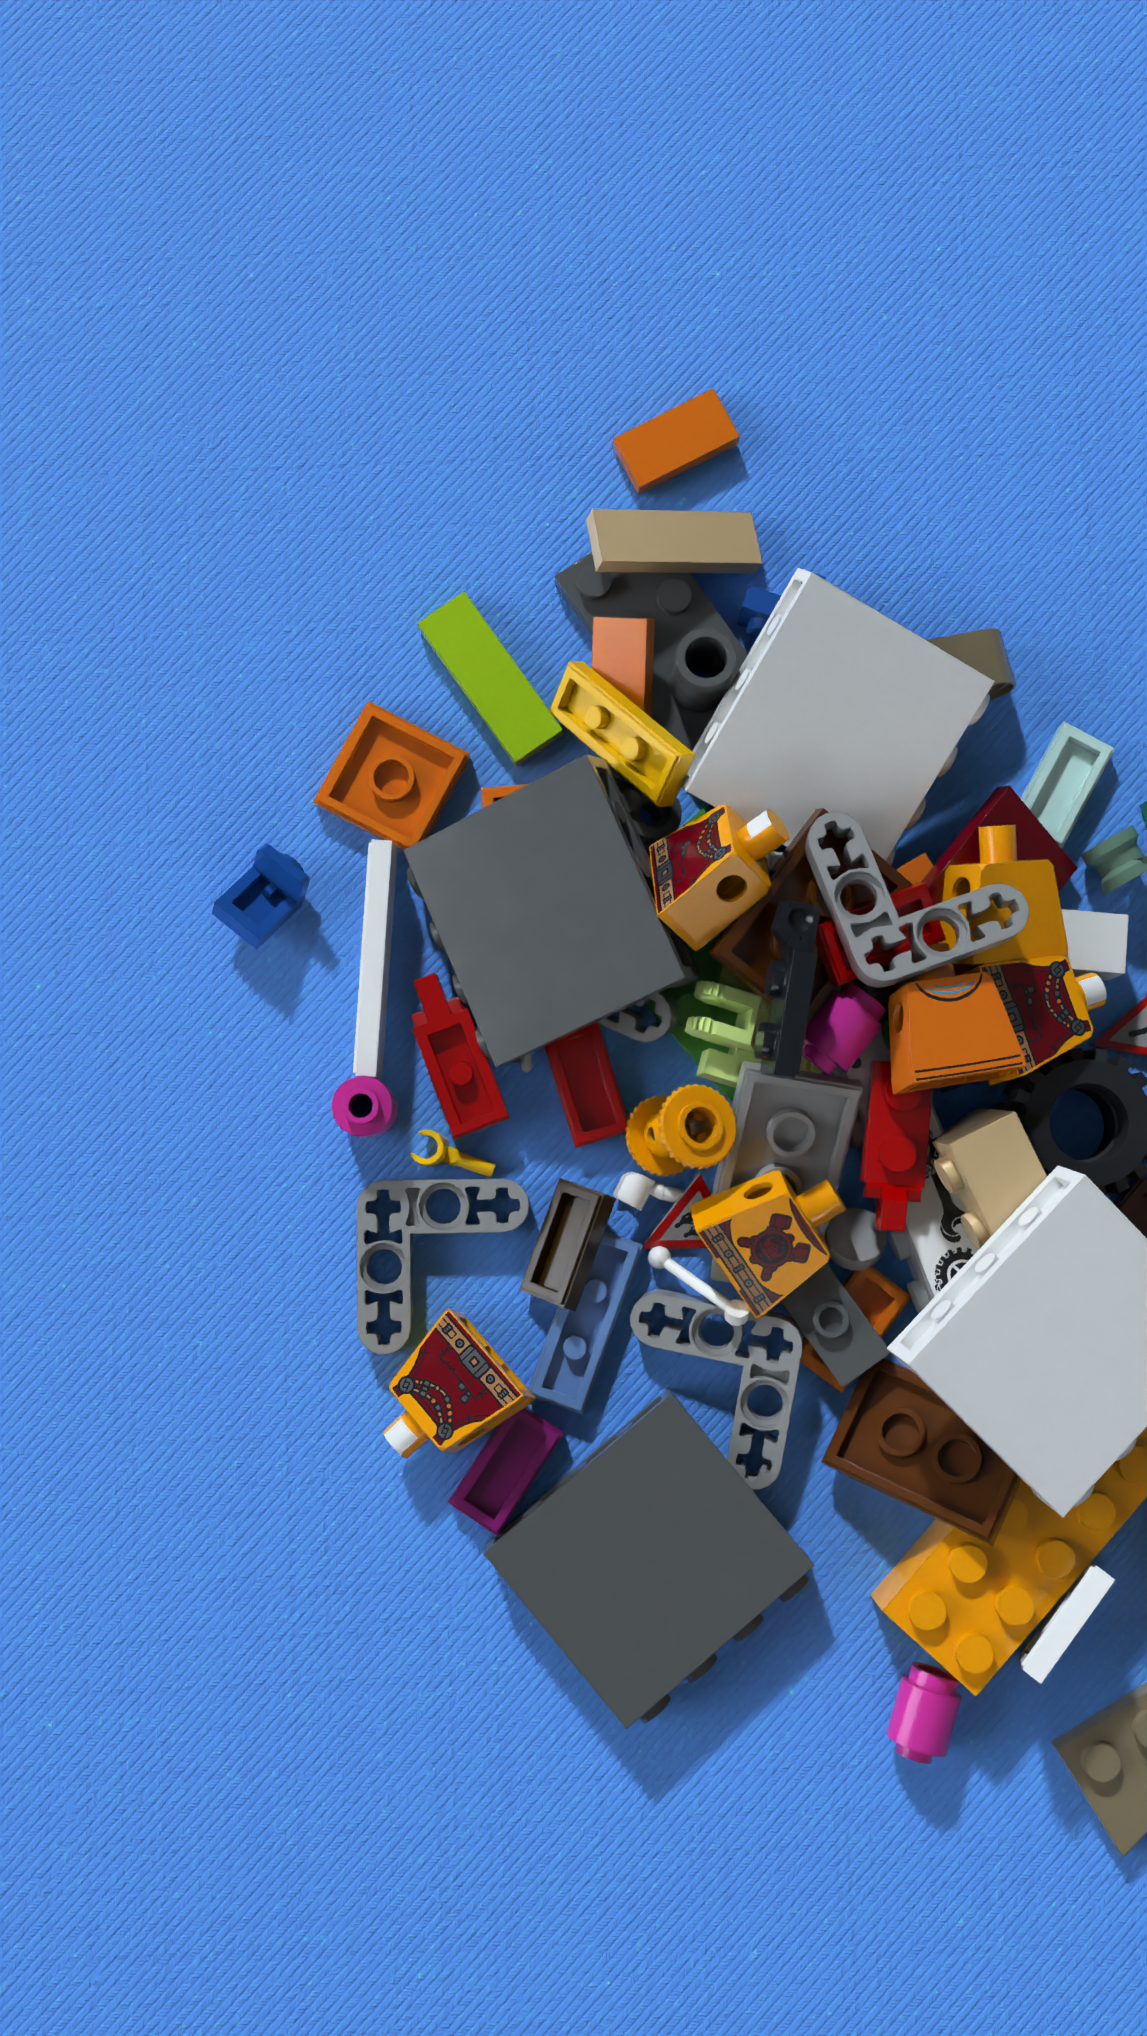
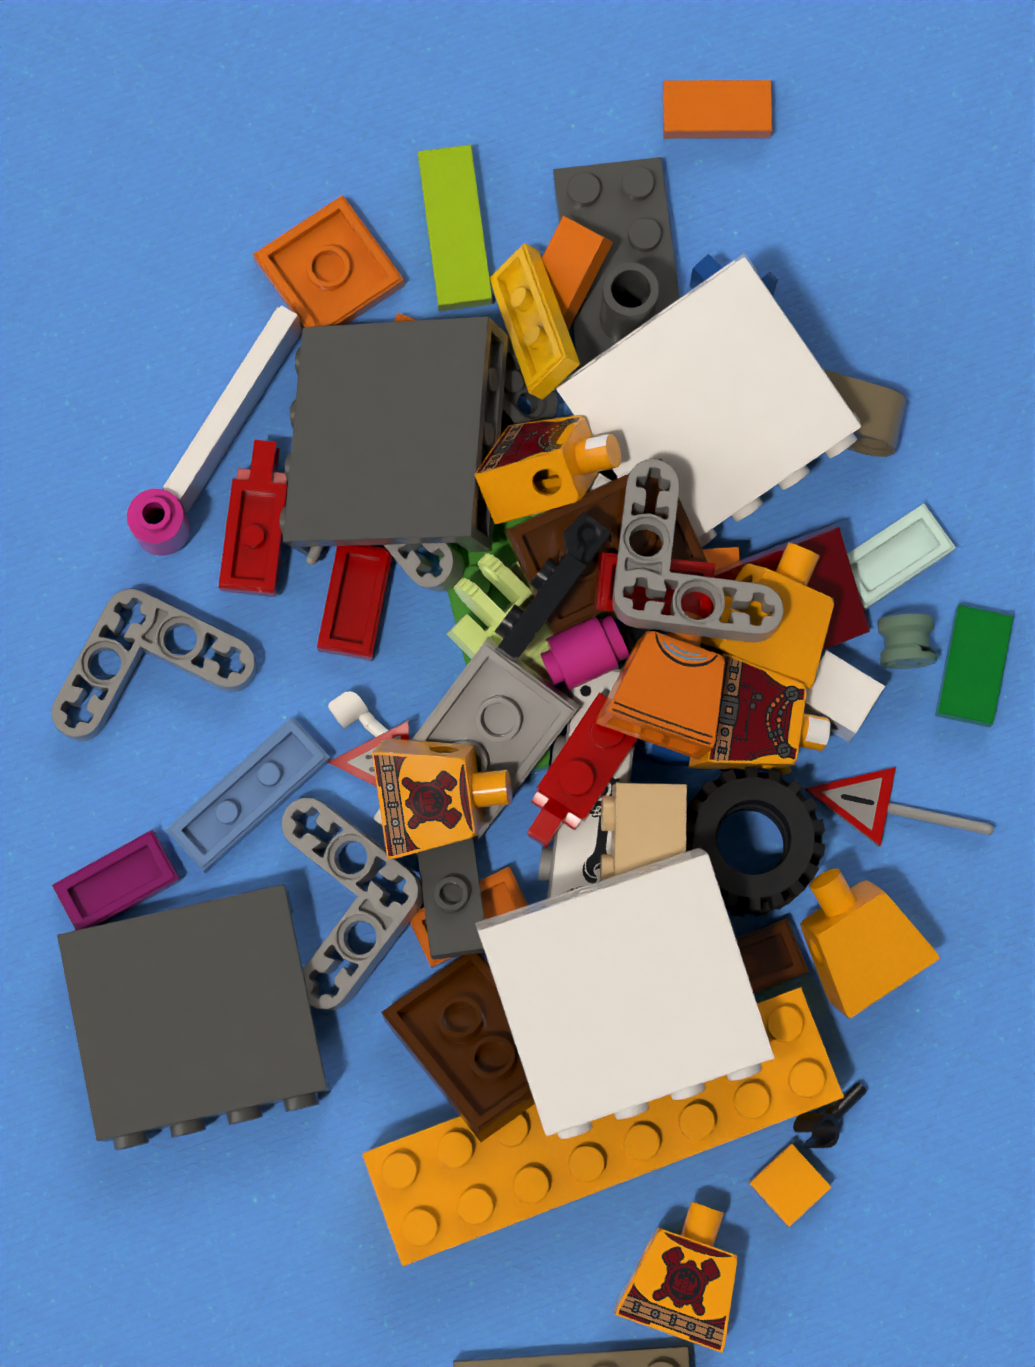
camera: 30 degrees right, 5 degrees down
(263, 896) = (169, 310): blue bracket -> none
(453, 1156) = (205, 598): yellow hand -> none
(453, 1389) = (106, 790): torso -> none
(567, 1244) = (266, 722): dark brown tile -> none
(673, 541) = (666, 188): tan tile -> none
(689, 1130) = (430, 668): light orange hose -> none
(735, 1310) = (373, 844): white hinge -> none
(854, 1240) = (508, 844): light grey tile -> none
(924, 1713) = (355, 1268): dark pink brick -> none
(1065, 1622) = (513, 1246): white tile -> none

